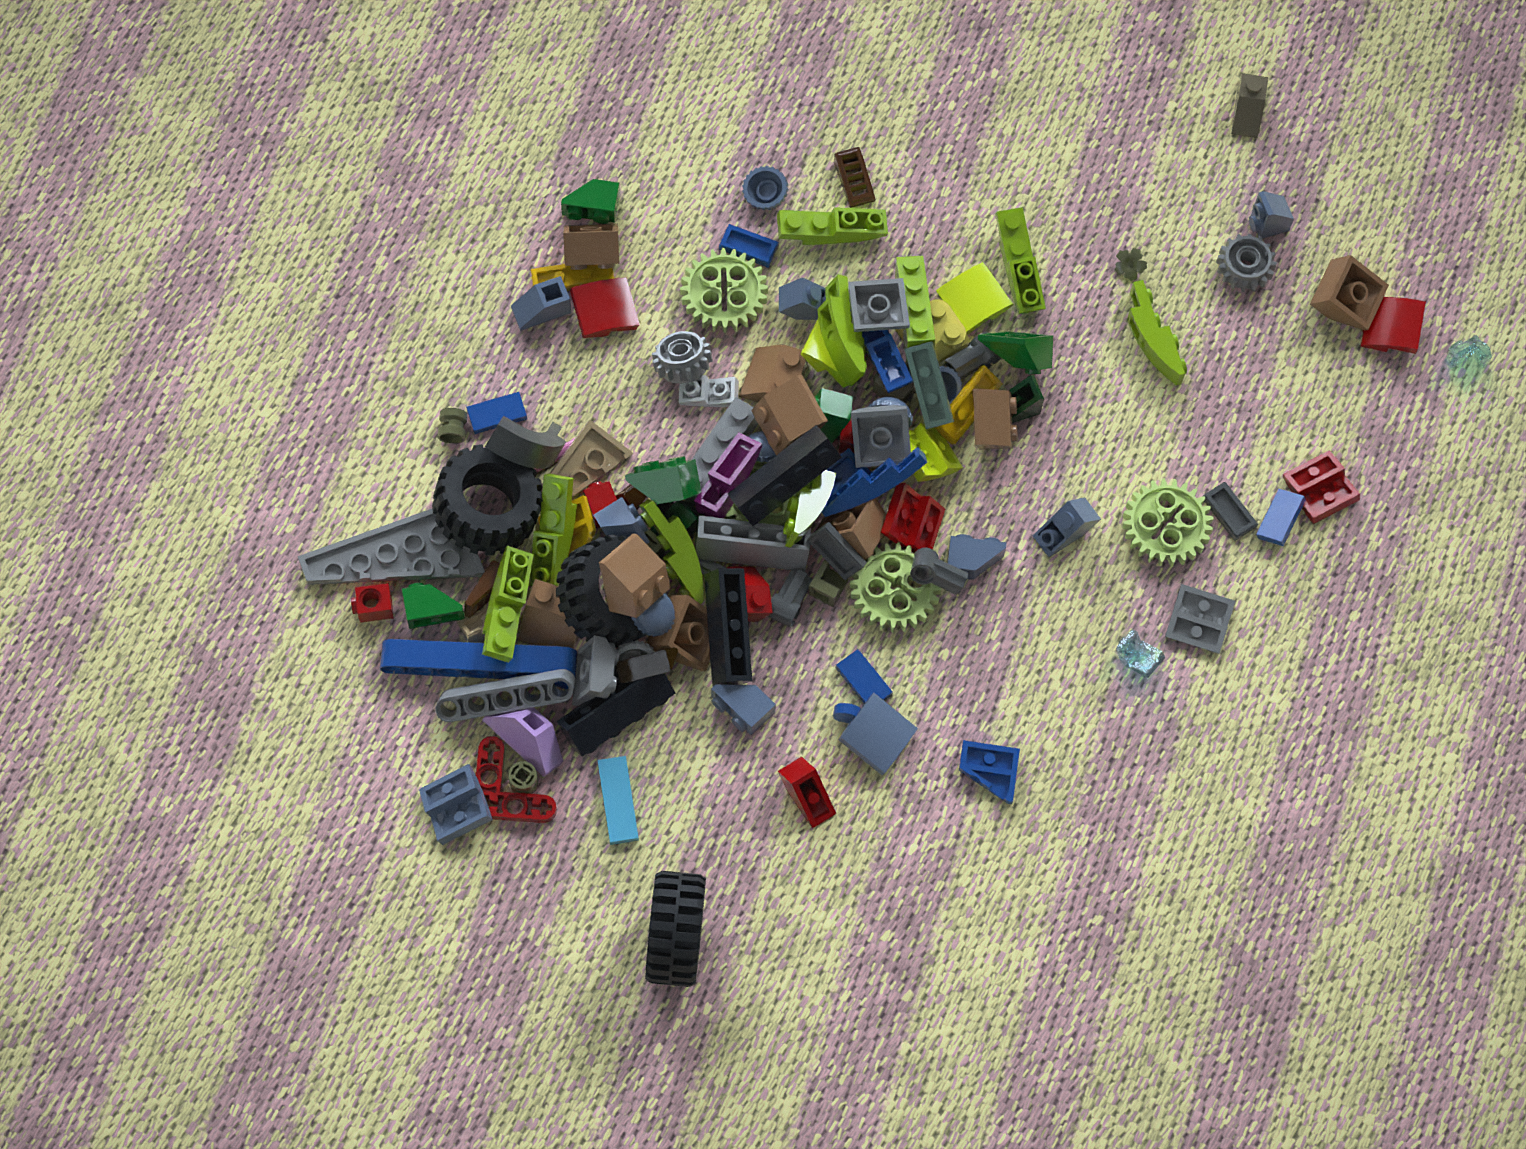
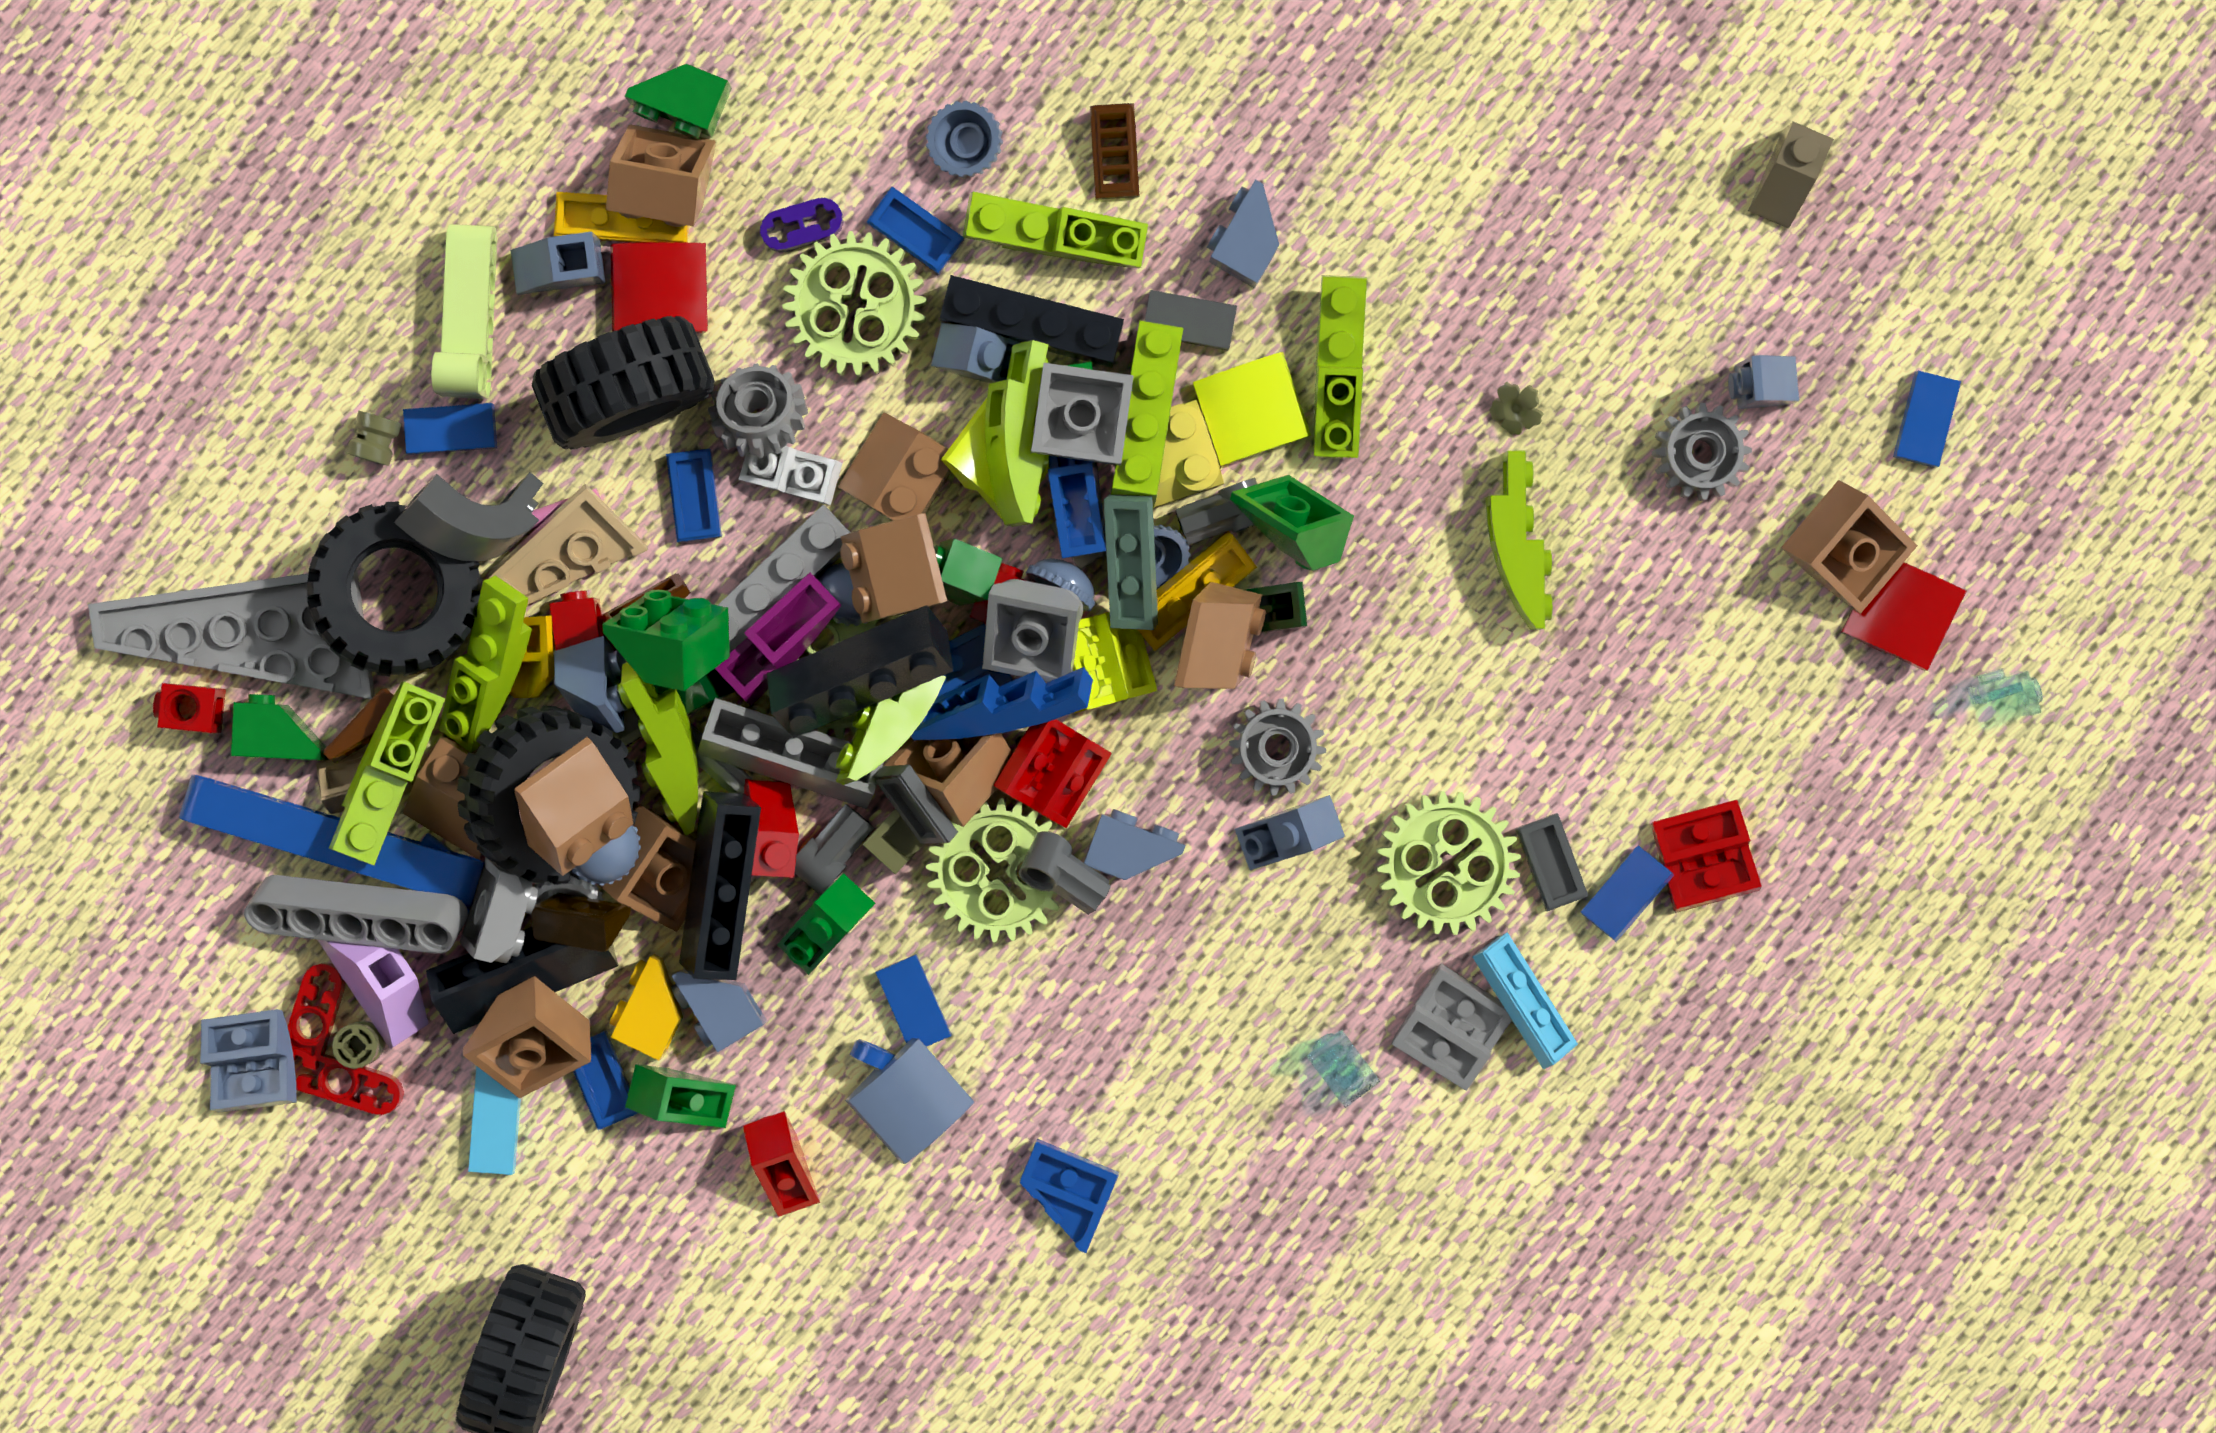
camera: 20 degrees right, 20 degrees up
(493, 344) = (467, 313): none -> yellowish green beam
(601, 348) = (622, 382): none -> black tyre
(631, 744) = (529, 1038): none -> medium nougat slope
(653, 418) = (694, 495): none -> blue tile
(676, 253) = (798, 214): none -> dark purple beam
(680, 769) = (604, 1083): none -> blue tile
(703, 718) = (651, 1012): none -> yellow slope
(733, 764) = (679, 1096): none -> green slope
(797, 642) = (825, 923): none -> green slope
(824, 269) = (1024, 318): none -> black brick
(936, 257) = (1202, 320): none -> dark grey tile
(947, 207) = (1249, 240): none -> sand blue slope
(1046, 465) = (1301, 747): none -> light grey gear
(1239, 591) = (1525, 1000): none -> medium azure tile
(1371, 219) = (1926, 419): none -> blue tile

